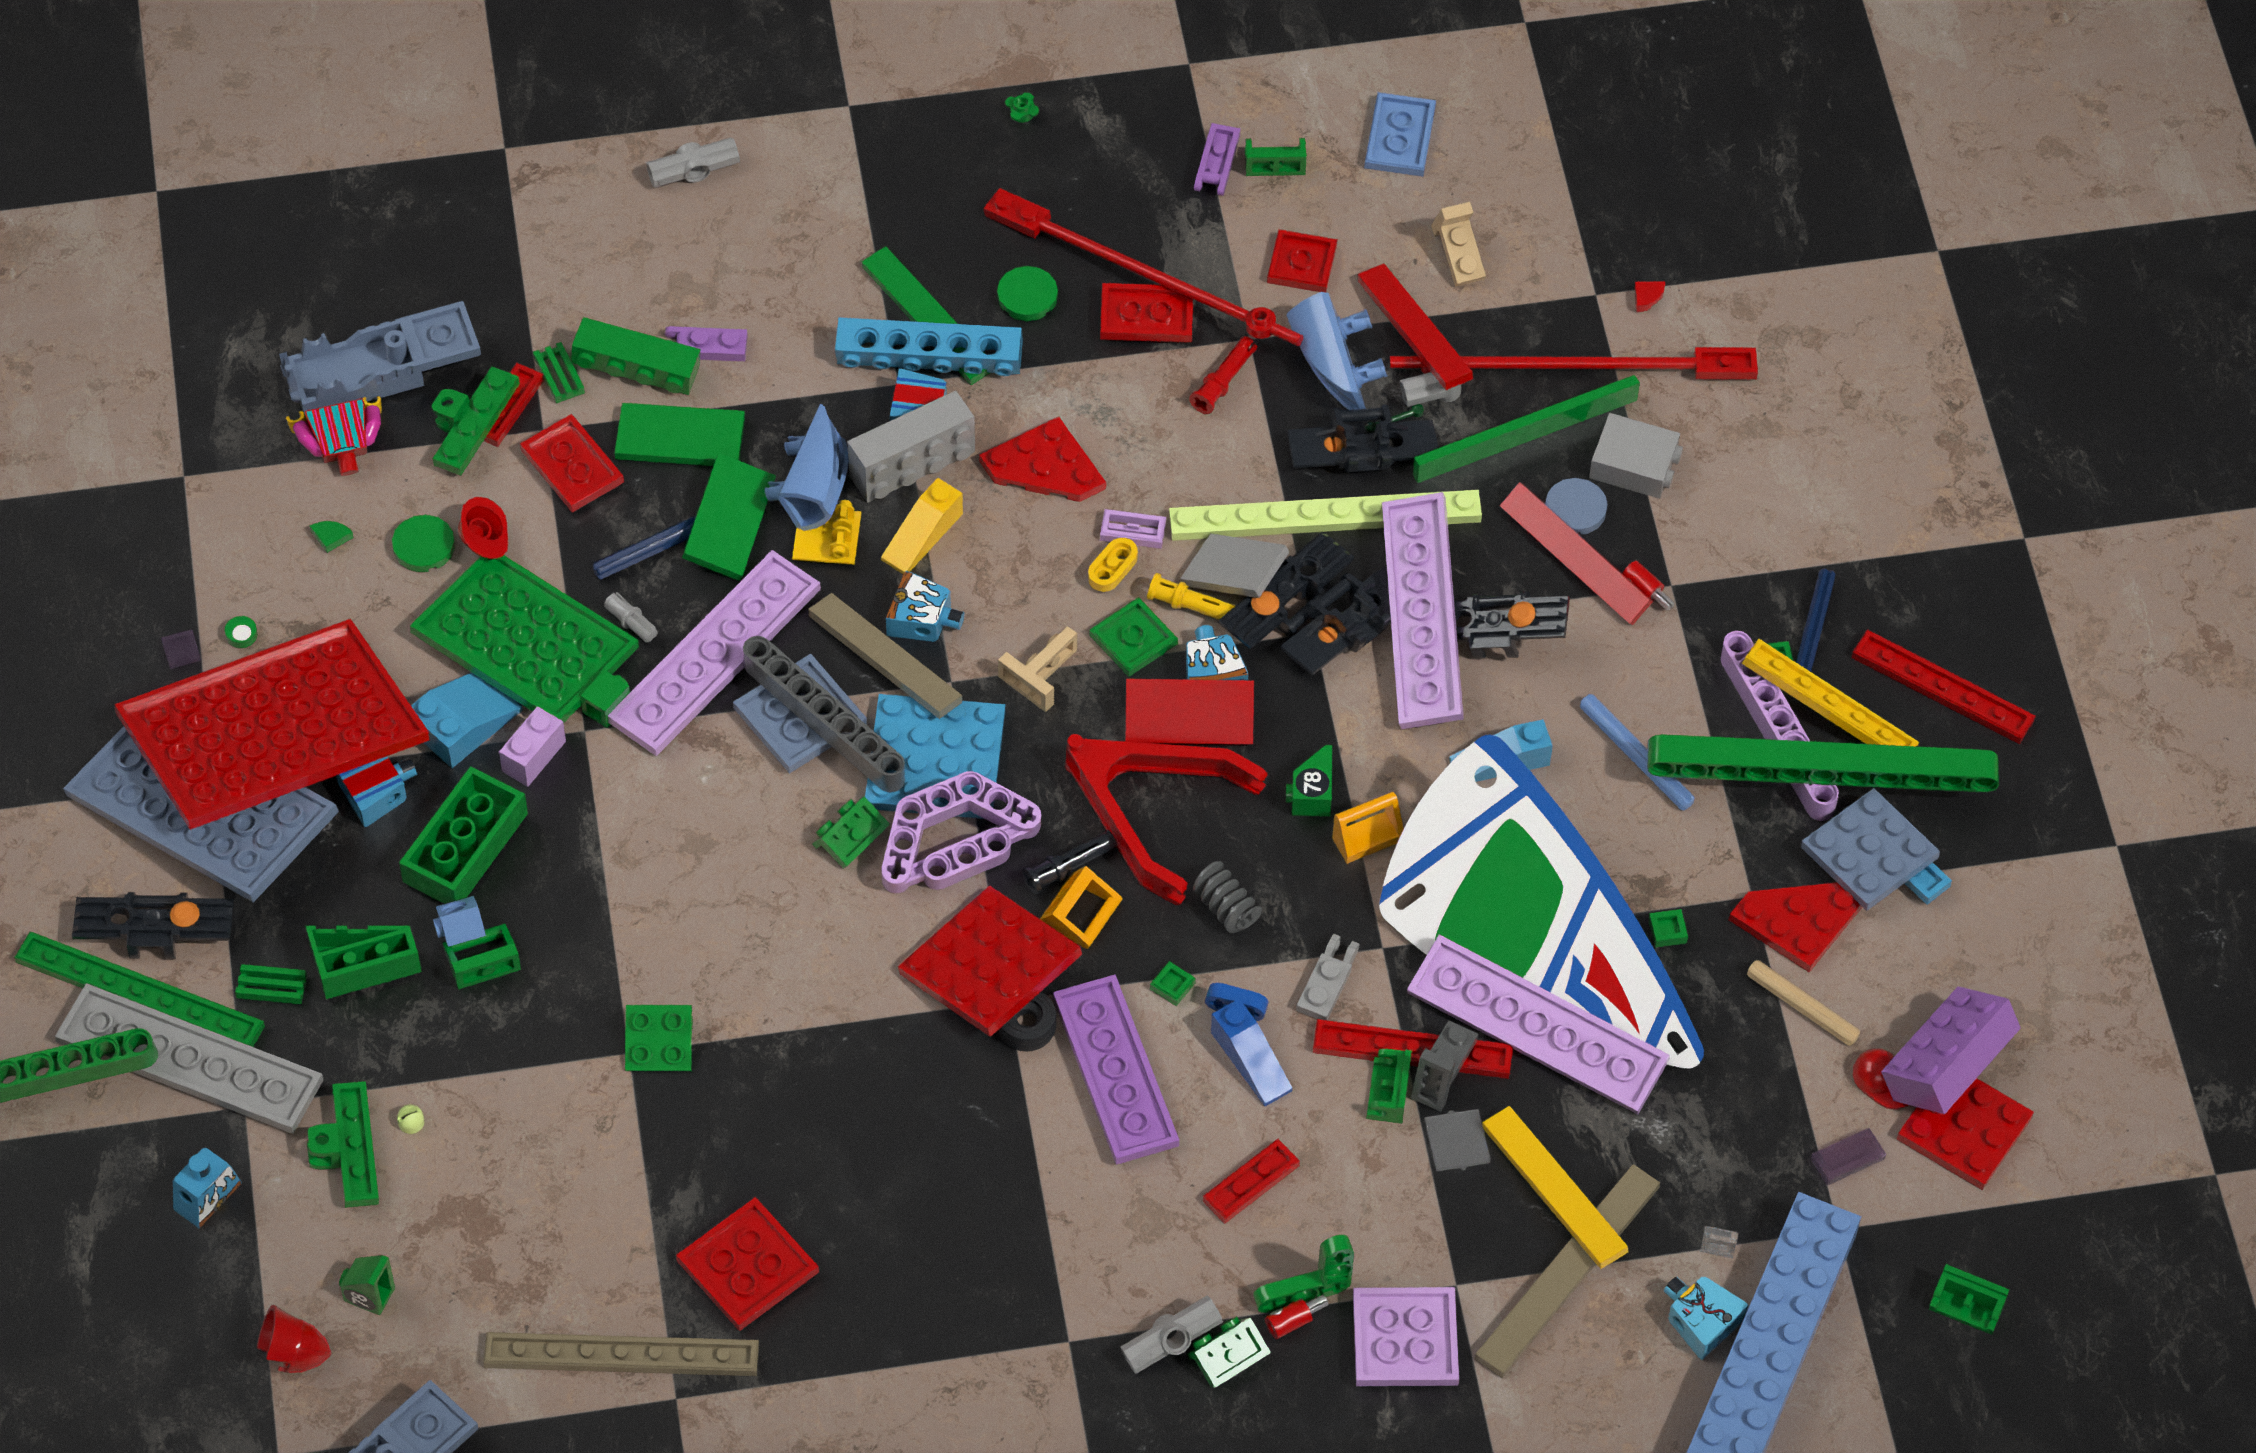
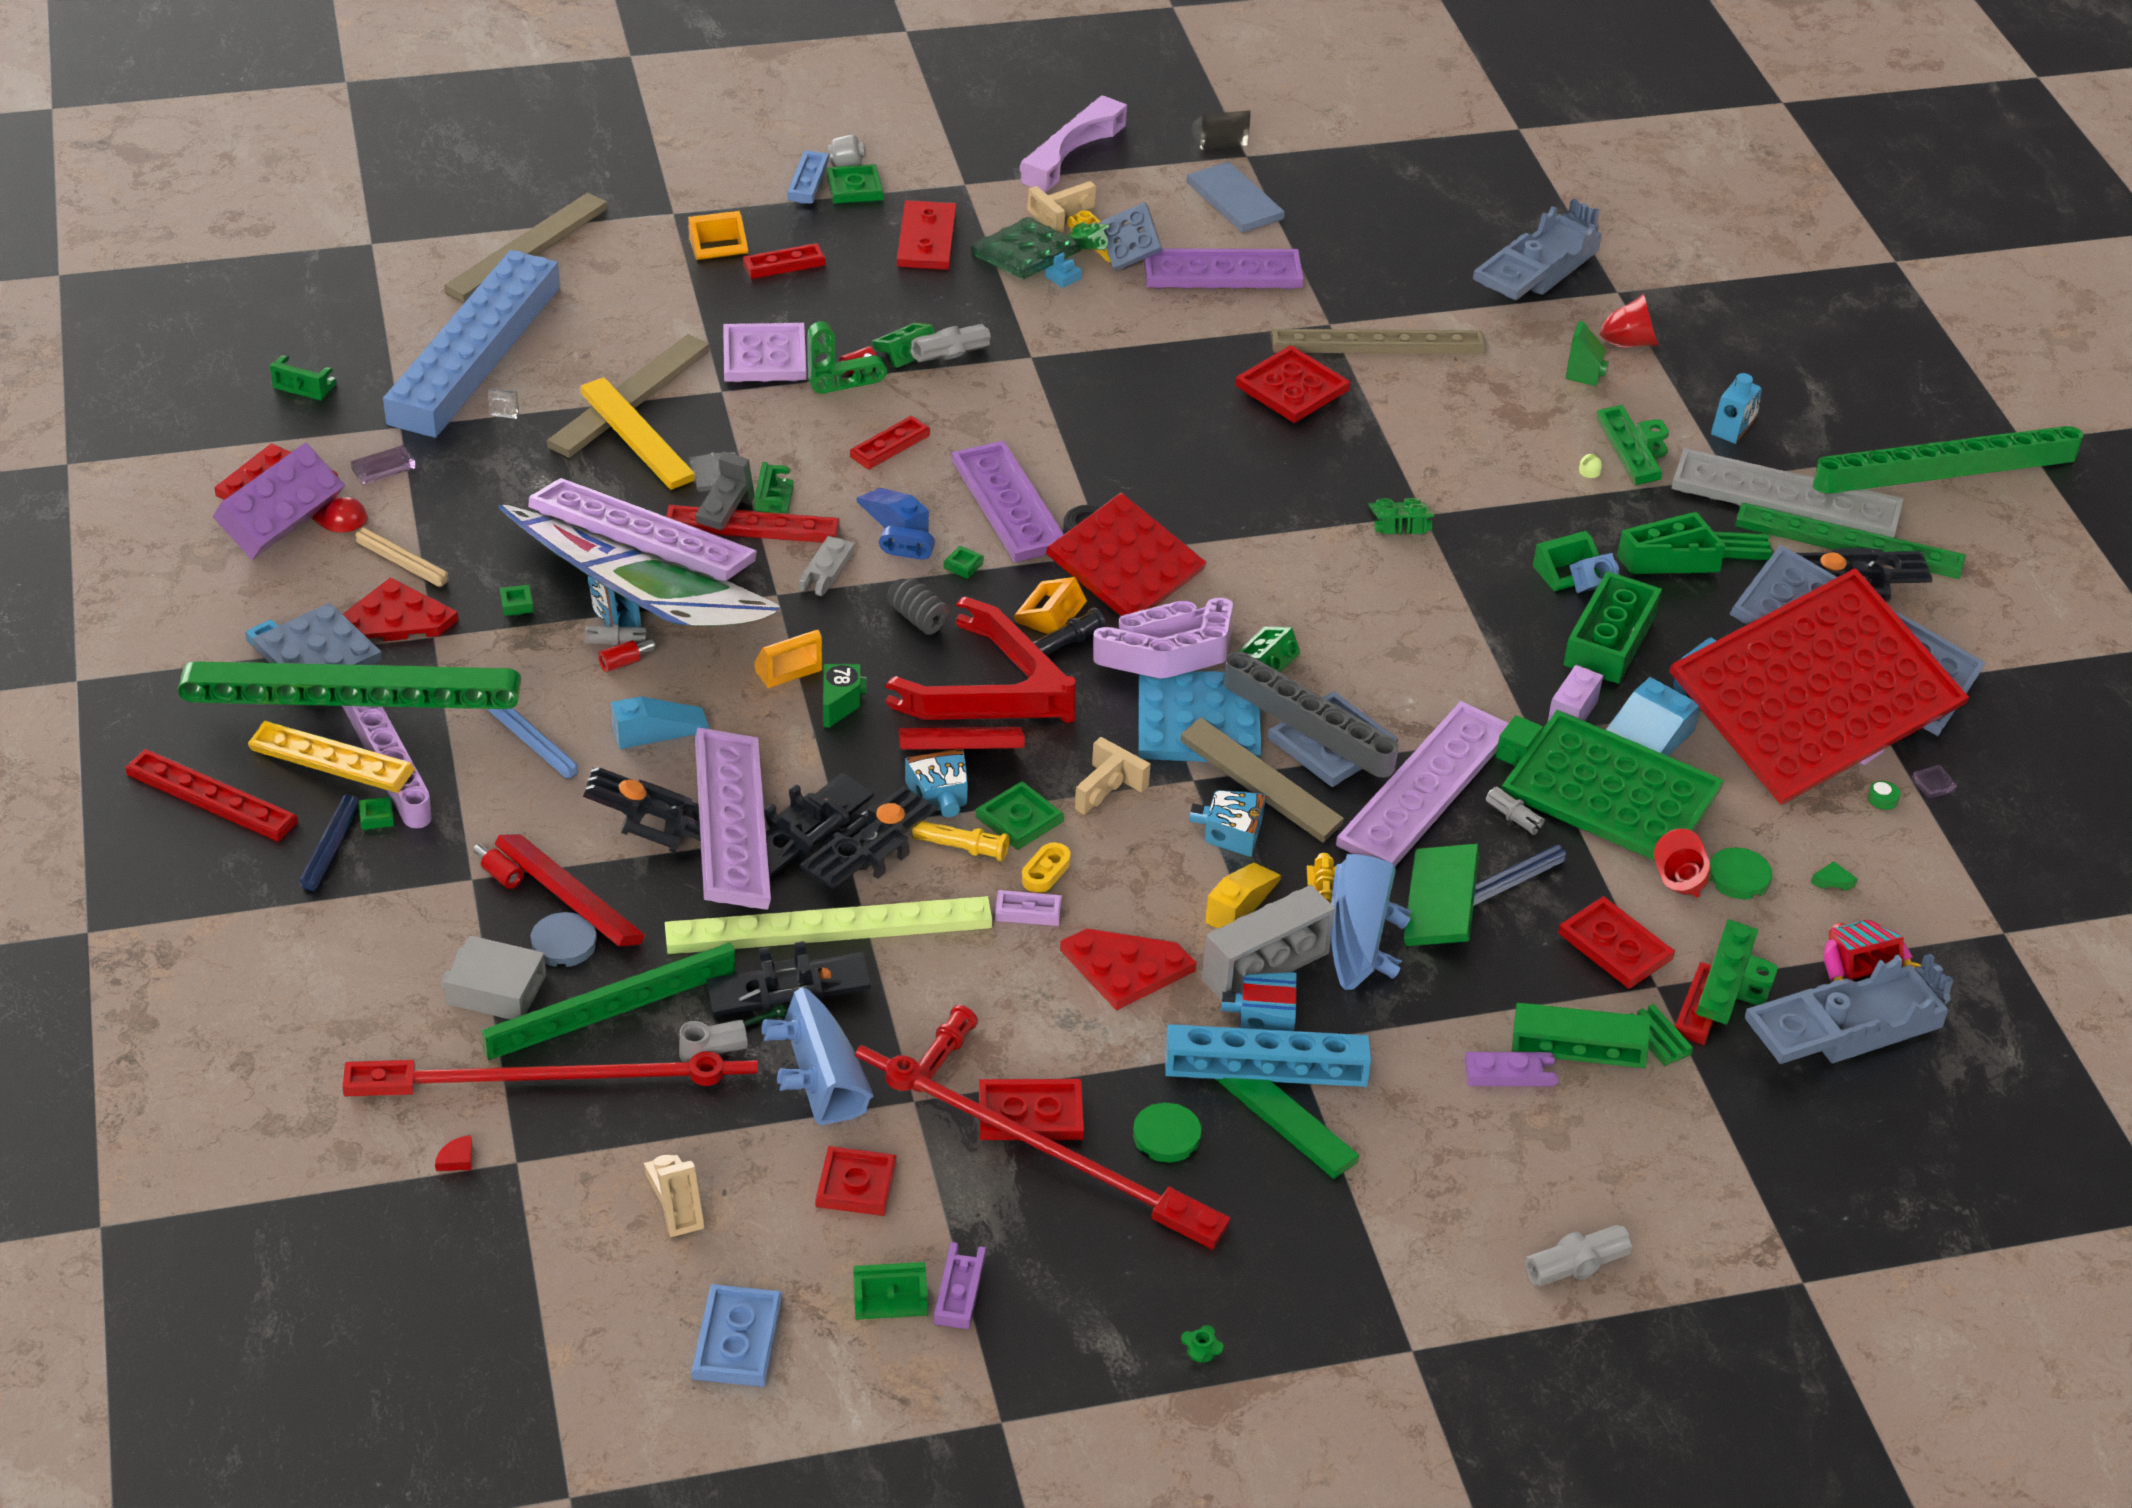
camera: 175 degrees right, 15 degrees down
(678, 434) = (1513, 978): green tile -> none
(1234, 565) = (922, 853): light grey tile -> none
(1415, 326) = (730, 1089): red tile -> none
(1704, 1313) = (520, 363): medium azure torso -> none

